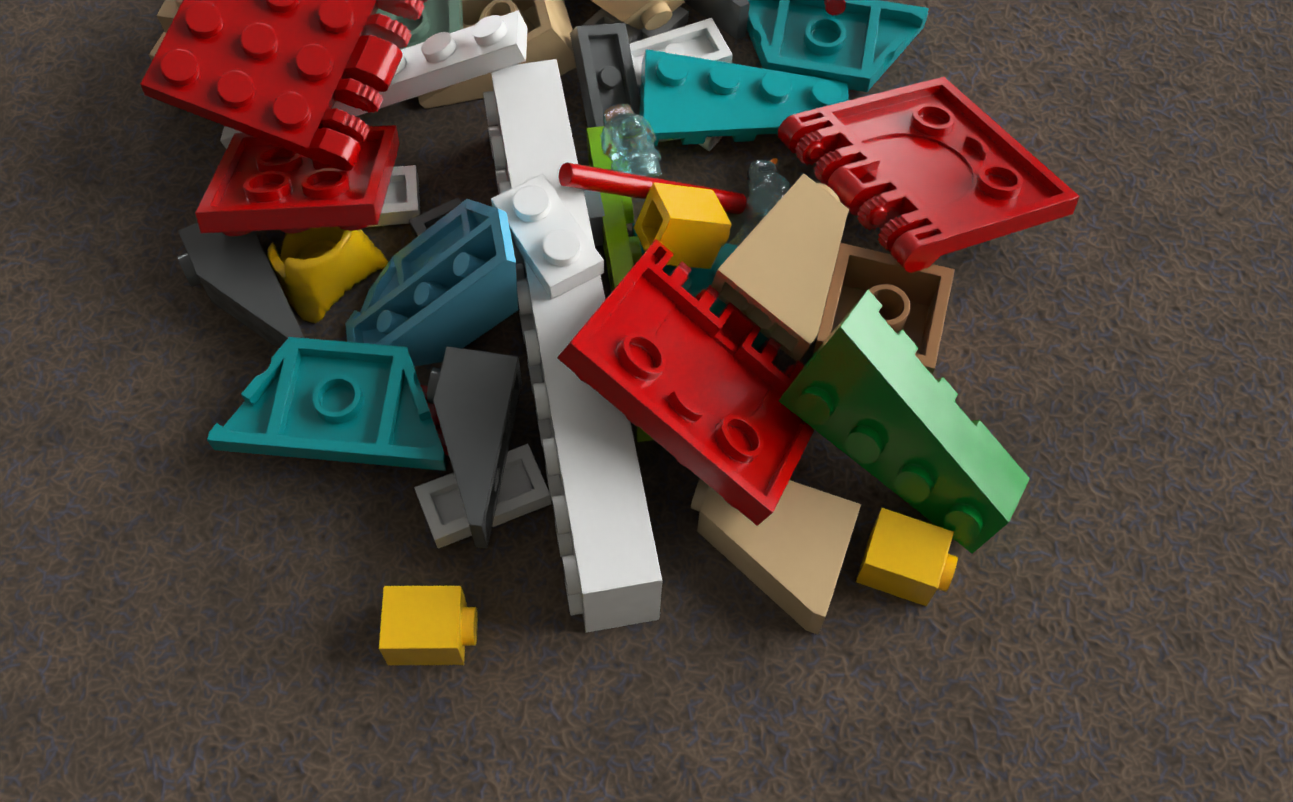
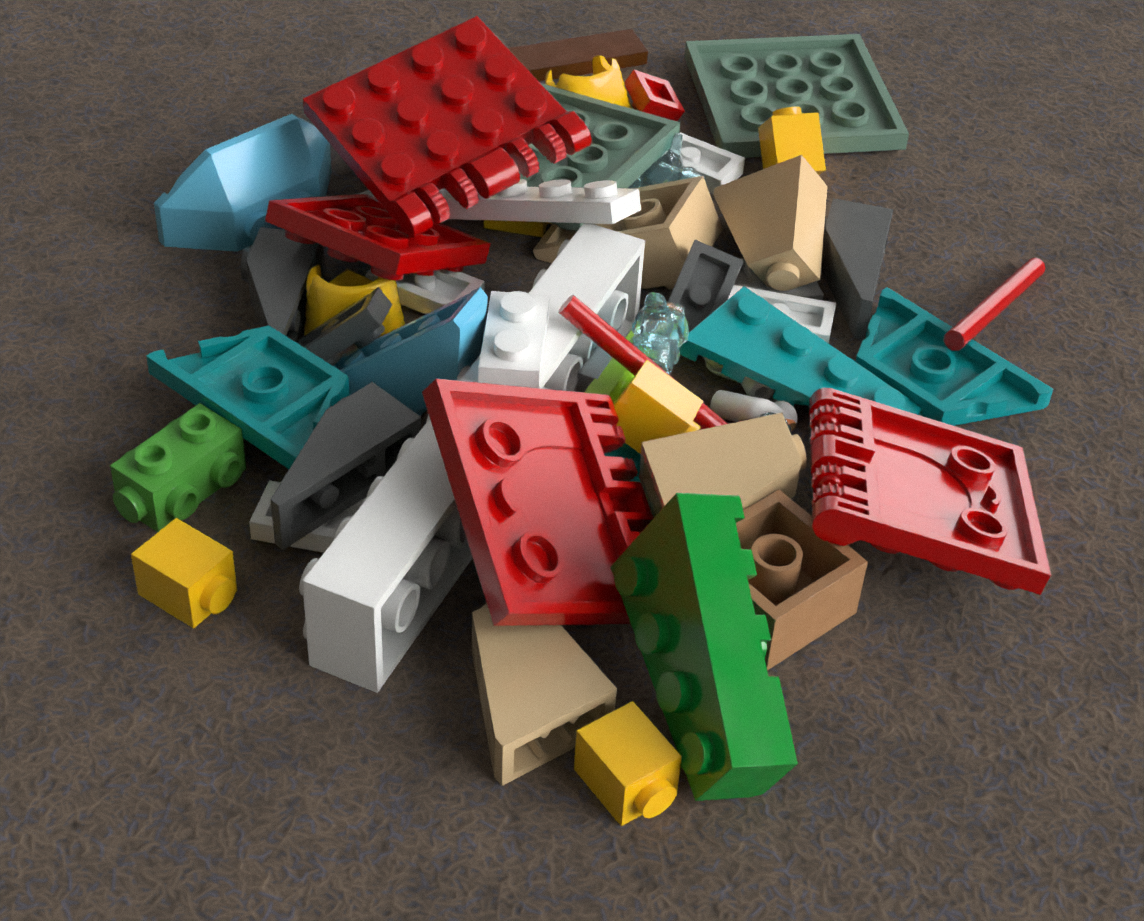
camera: 35 degrees right, 20 degrees down
(123, 195) = (229, 185): none -> medium azure wedge
(322, 527) = (178, 468): none -> bright green brick
(351, 297) = (354, 325): none -> dark grey plate
(725, 165) = (742, 407): none -> white arm

